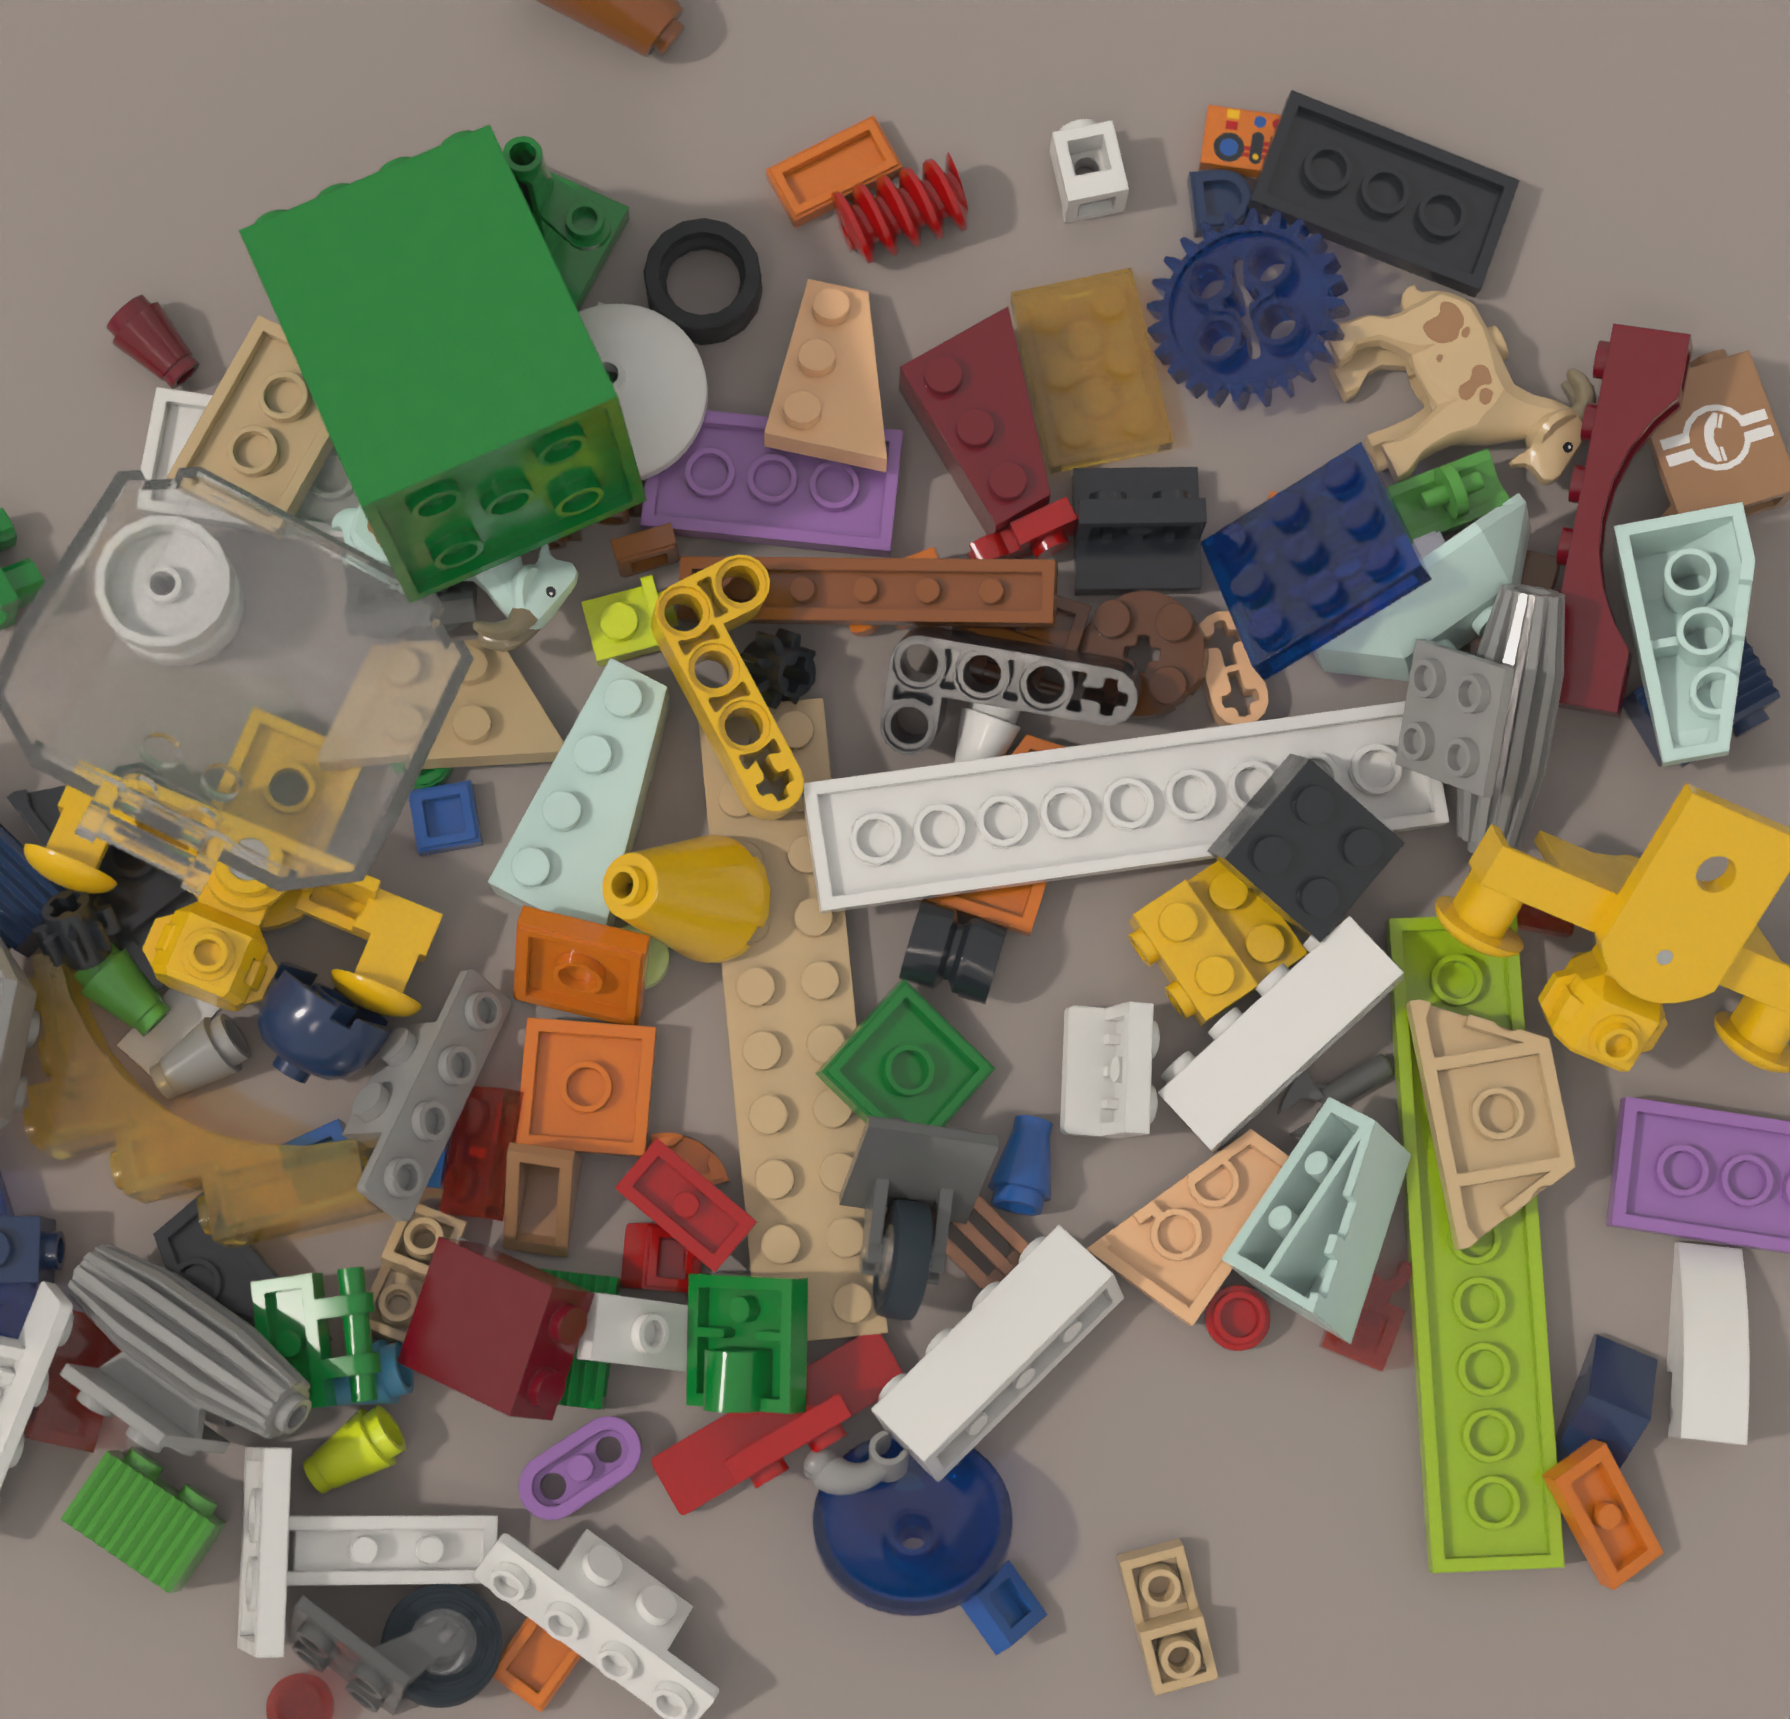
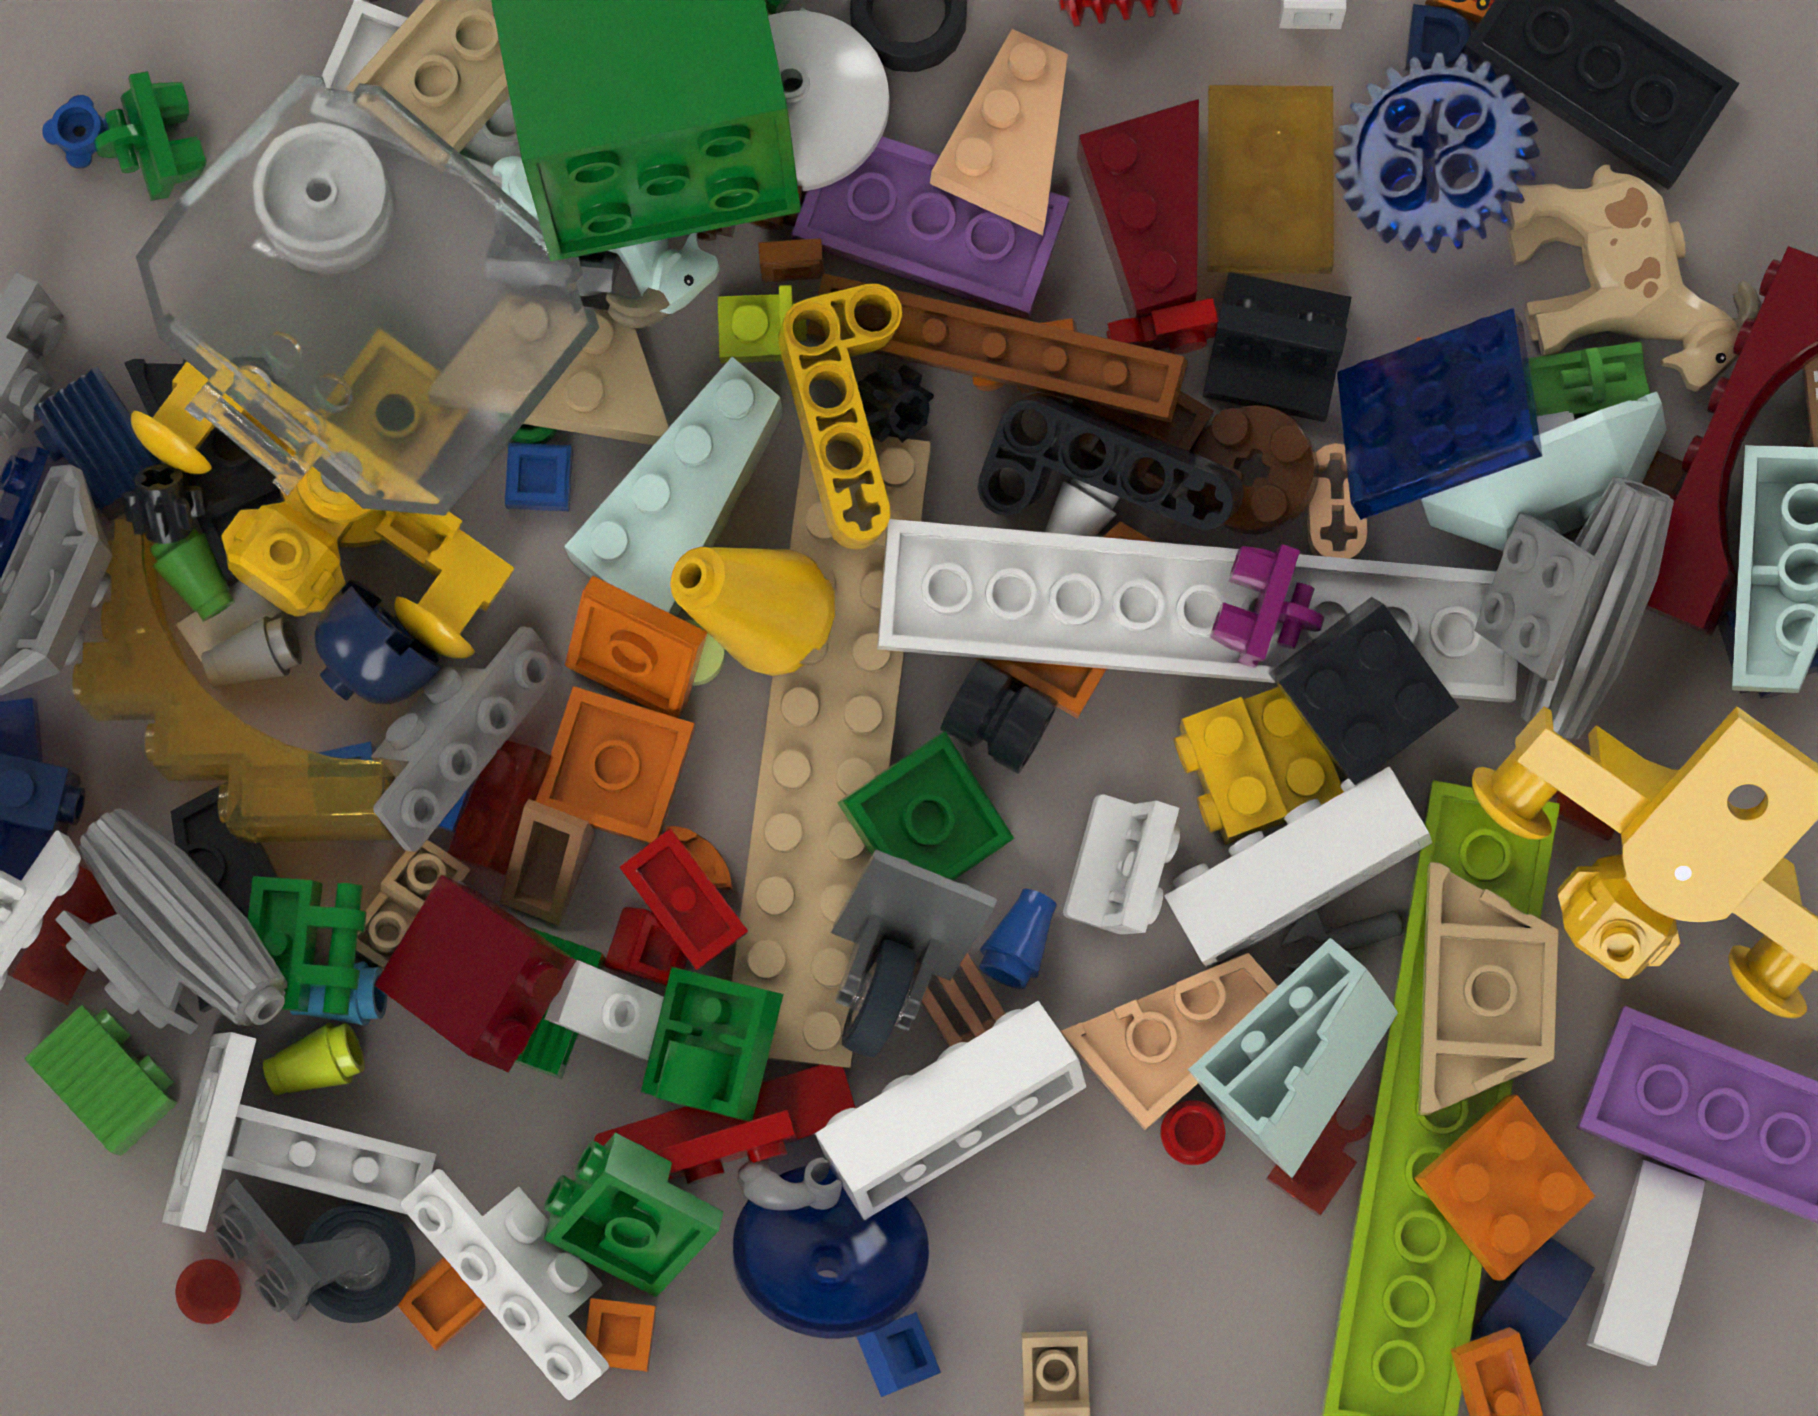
camera: 20 degrees right, 0 degrees up
(581, 1467) = (526, 1127): medium lavender plate -> none
(704, 1535) = (628, 1215): none -> green plate
(723, 1651) = (622, 1332): none -> orange plate
(1186, 813) = (1252, 631): none -> magenta hips
(1555, 1302) = (1505, 1187): none -> orange plate

